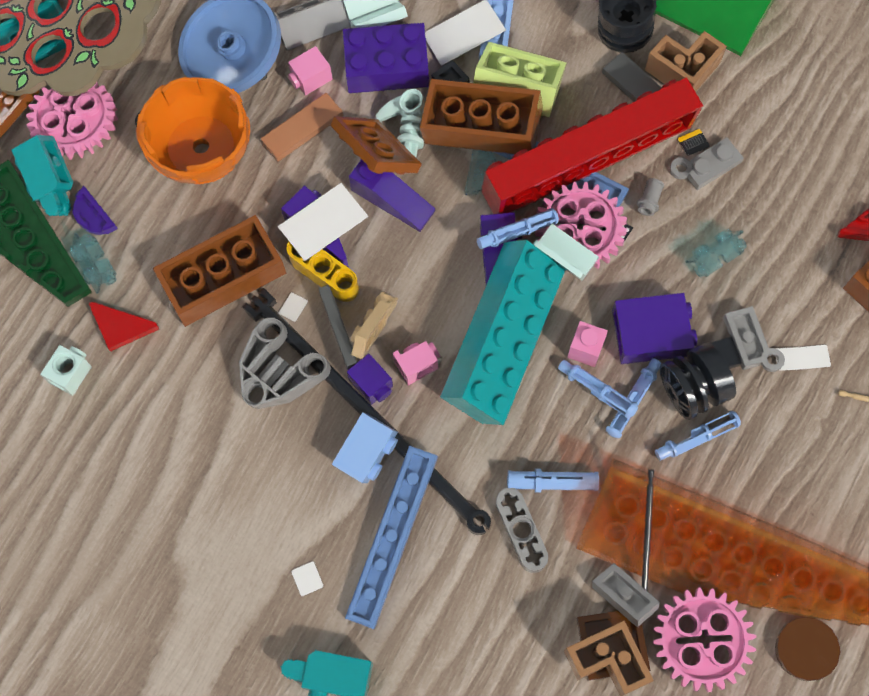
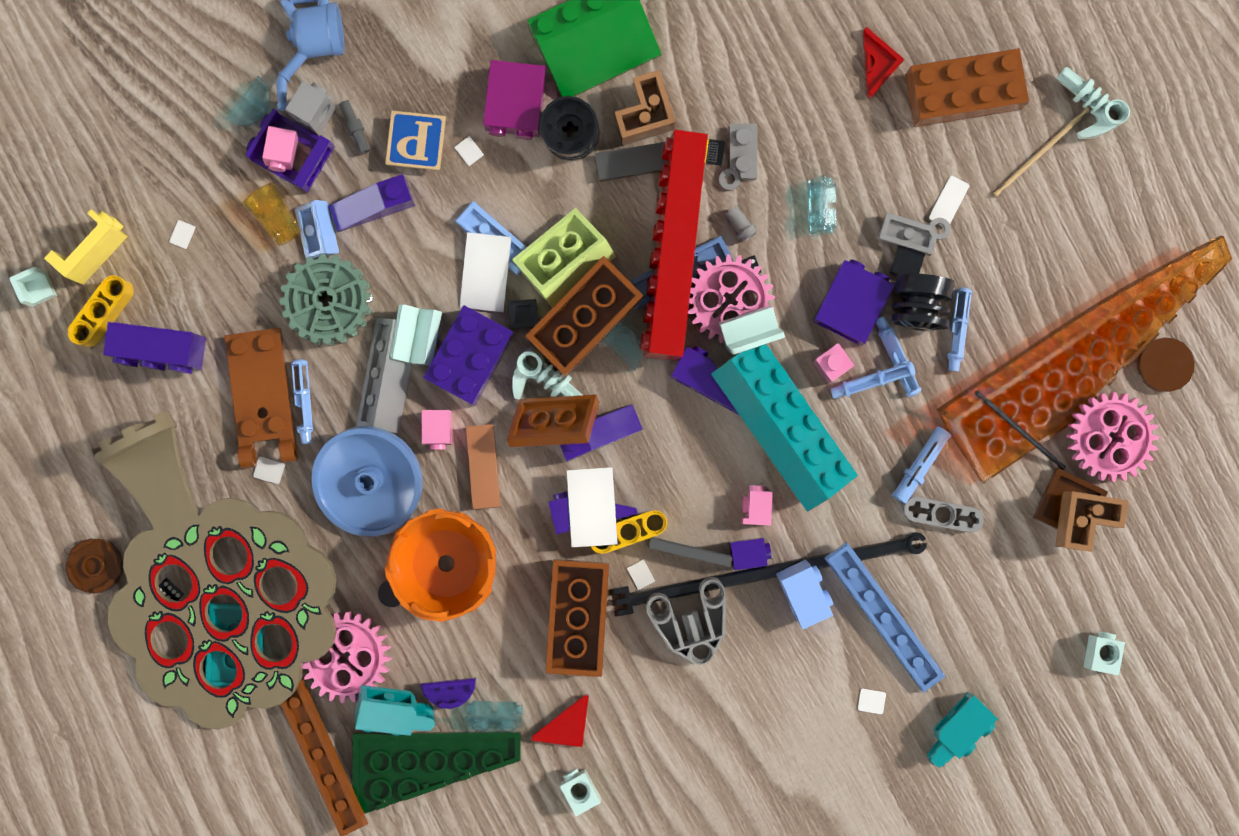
camera: 60 degrees left, 15 degrees up
(373, 324) = (703, 519): tan hinge -> none
(519, 228) = (706, 353): light blue piece -> none
(625, 594) = (1044, 472): light grey plate -> none

